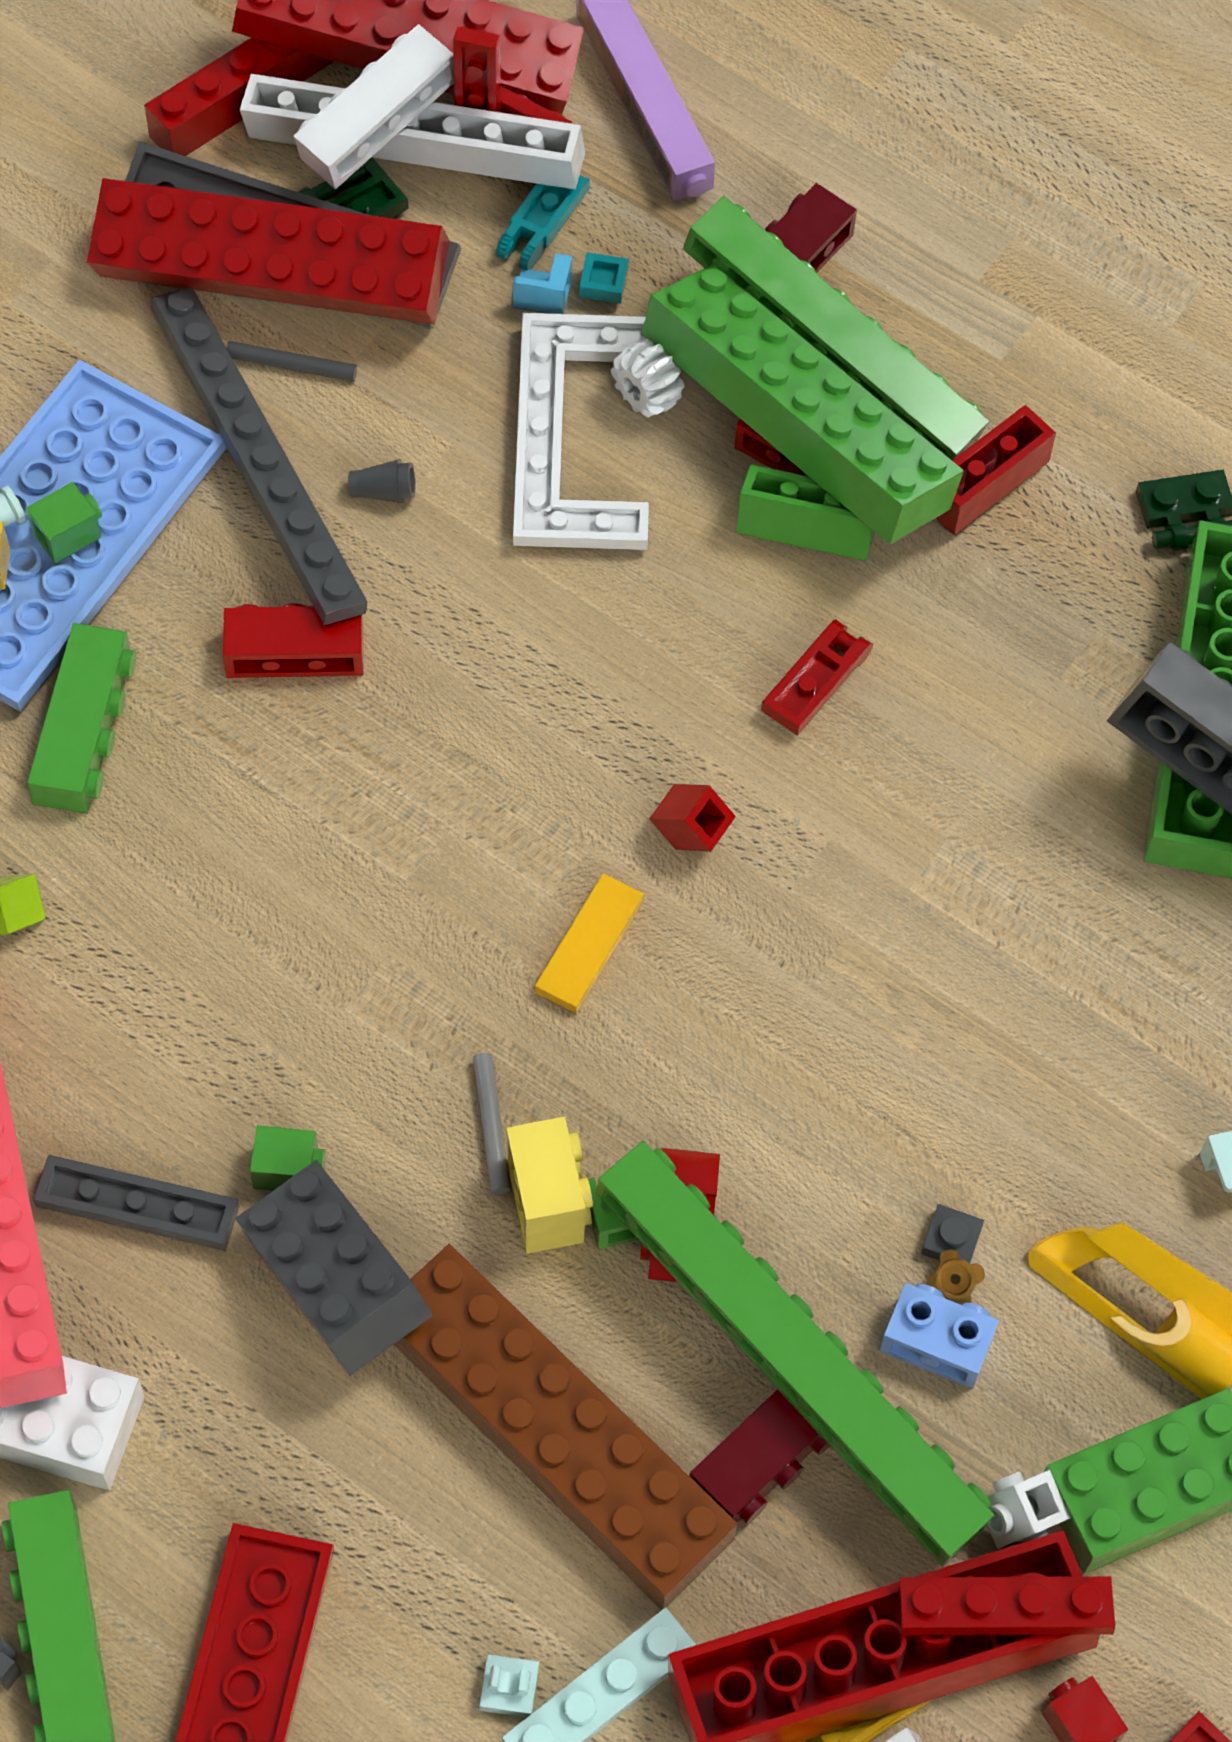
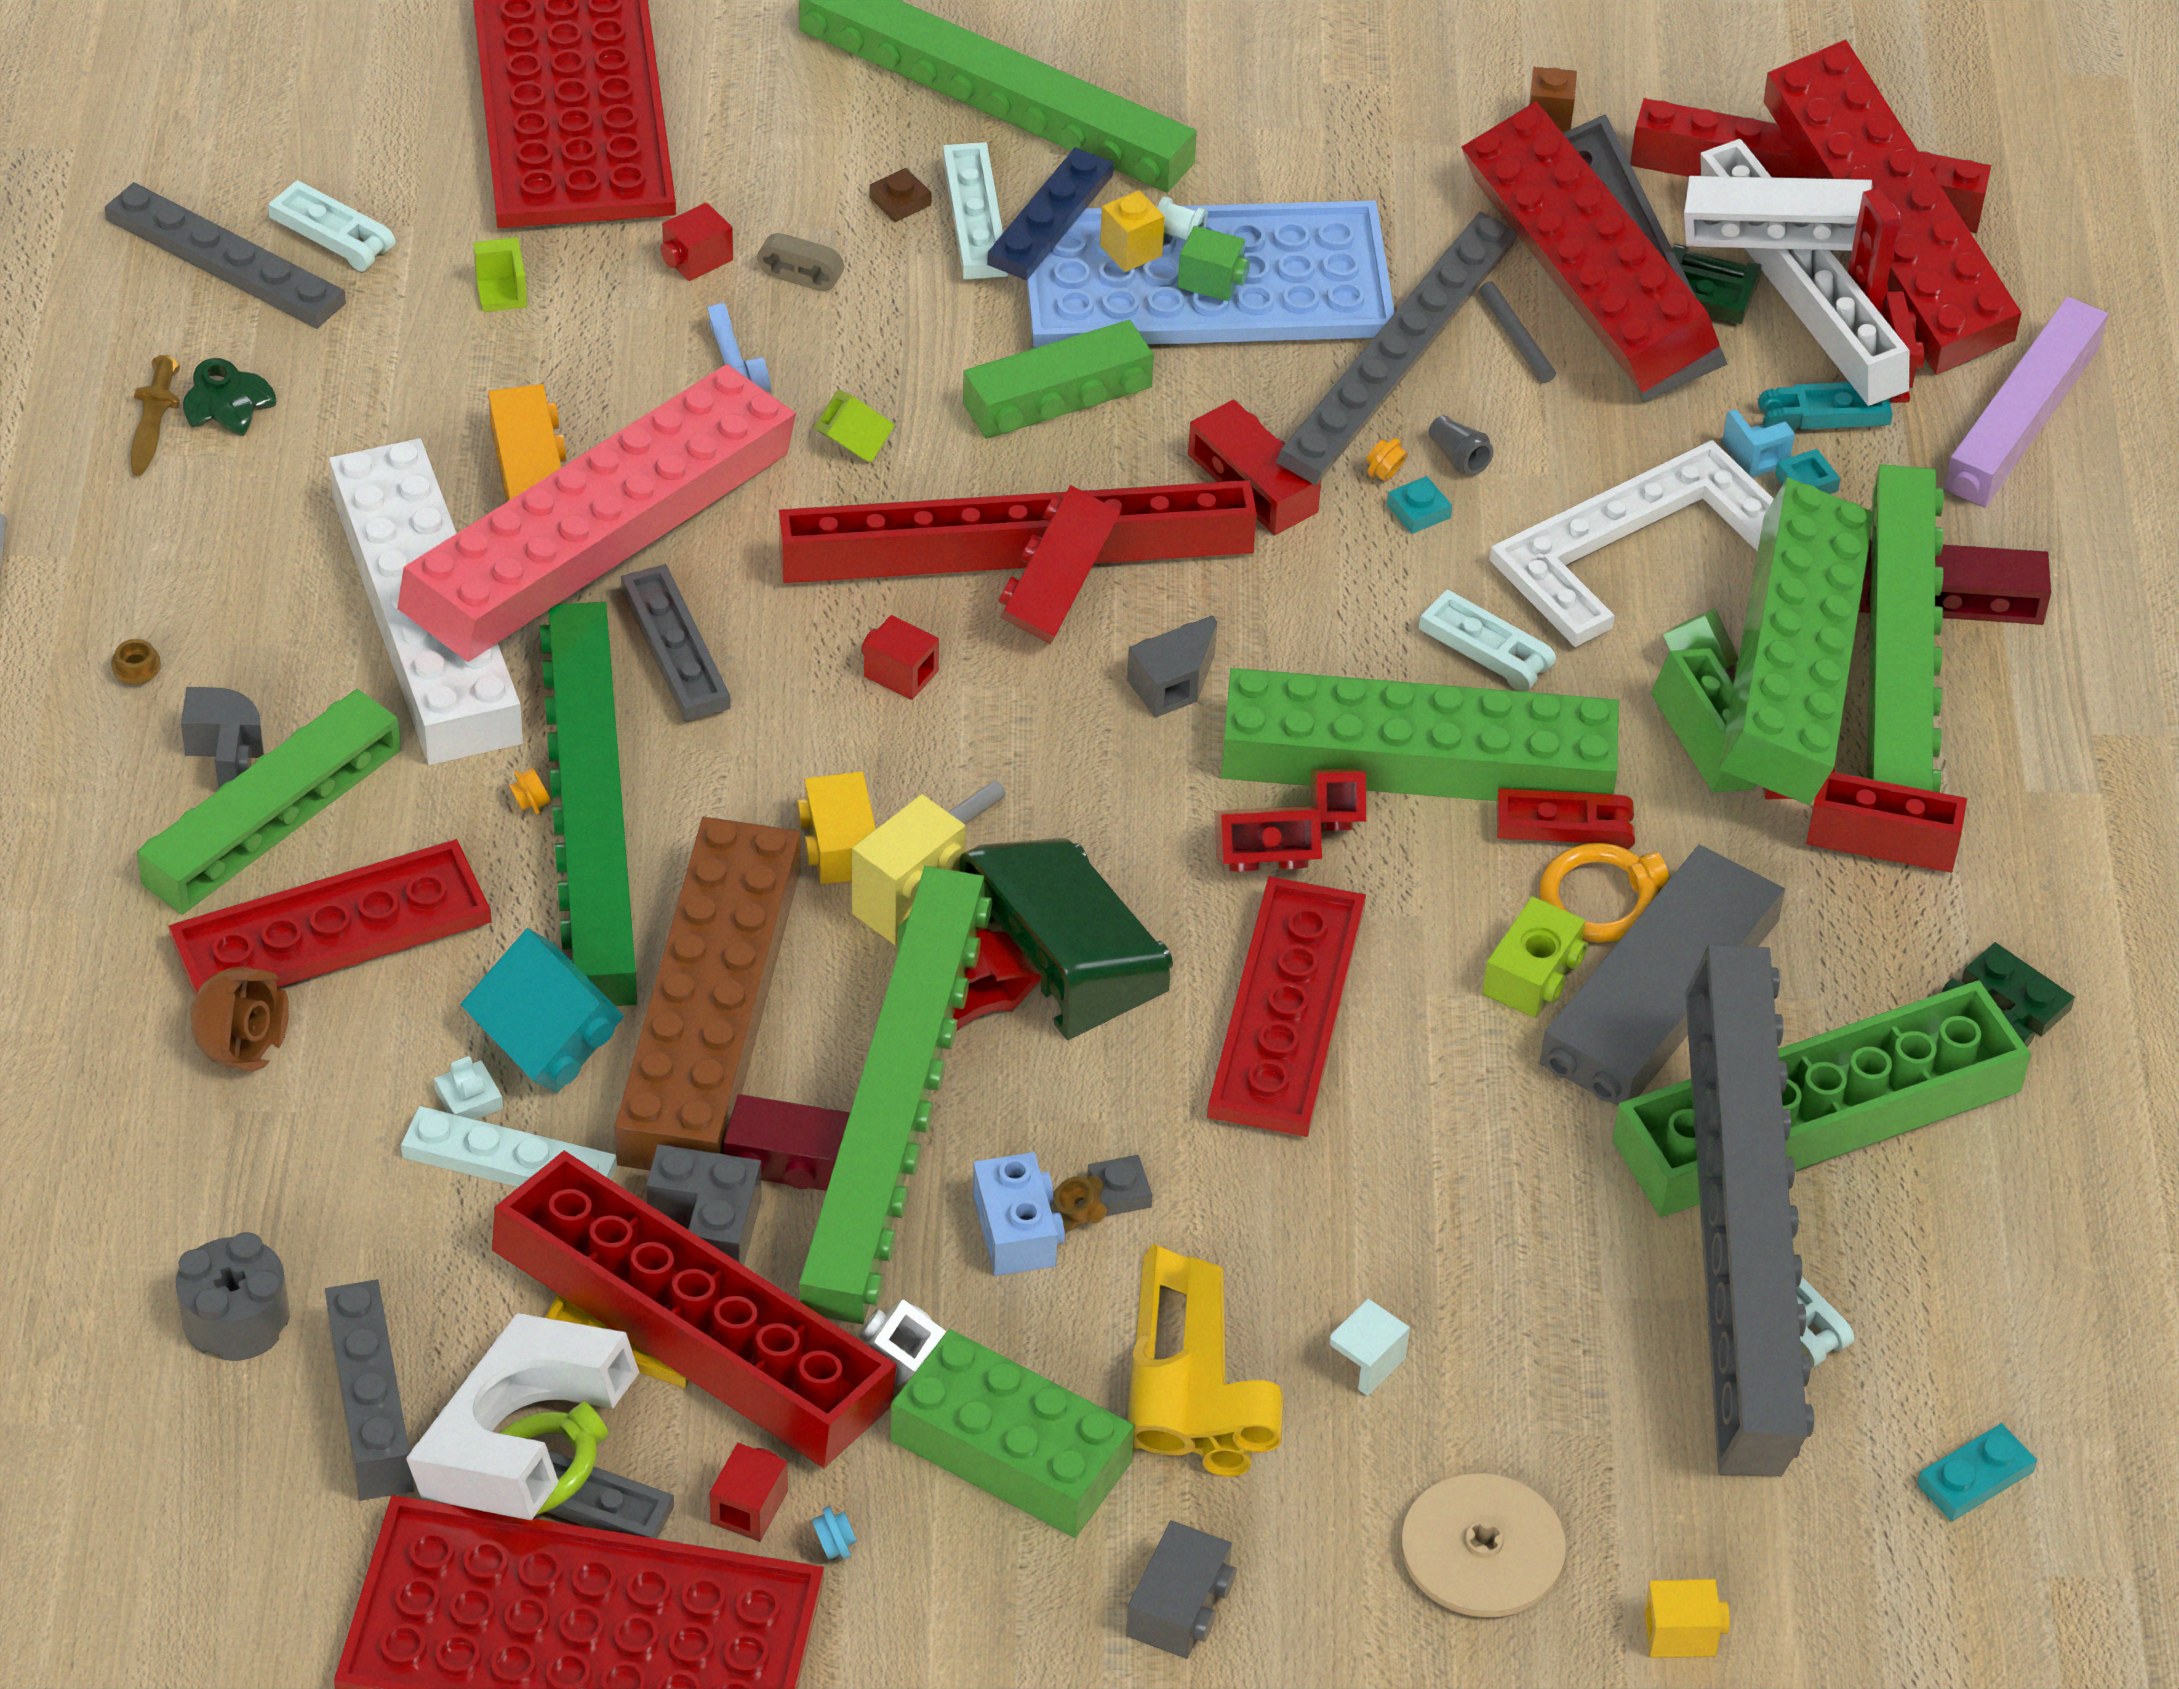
camera: 55 degrees right, 15 degrees down
(77, 167) = (1555, 93): none -> dark orange brick
(215, 1427) = (529, 790): none -> light orange plate
(230, 867) = (996, 530): none -> red brick
(272, 1387) = (591, 798): none -> green brick
(281, 1155) = (790, 707): bright green brick -> none
(292, 1038) = (900, 657): none -> red brick
(312, 856) = (1057, 563): none -> red brick
(334, 1267) = (712, 765): dark grey brick -> none
(359, 543) = (1386, 459): none -> light orange plate
(418, 553) = (1419, 504): none -> teal plate
(444, 1205) = (837, 820): none -> yellow brick
(463, 842) = (1172, 666): none -> dark grey slope
(491, 1574) = (542, 1011): none -> teal brick
(589, 943) = (1163, 801): yellow tile -> none
(599, 604) = (1487, 640): none -> light aqua plate
(647, 378) = (1731, 547): white gear -> none
(669, 722) = (1417, 735): none -> bright green brick
(681, 1103) = (1071, 929): none -> dark green windscreen
(695, 894) = (1268, 835): none -> red brick
(717, 466) = (1703, 633): none -> bright green panel
(780, 1556) = (708, 1195): none -> dark grey brick
(864, 996) = (1287, 1007): none -> red plate
(913, 662) = (1645, 873): none -> light orange piece
(943, 816) = (1535, 957): none -> lime brick
(1007, 1605) = (789, 1347): red plate -> none
(1022, 721) = (1635, 1001): none -> dark grey brick
(1165, 1680) = (834, 1533): none -> medium azure plate

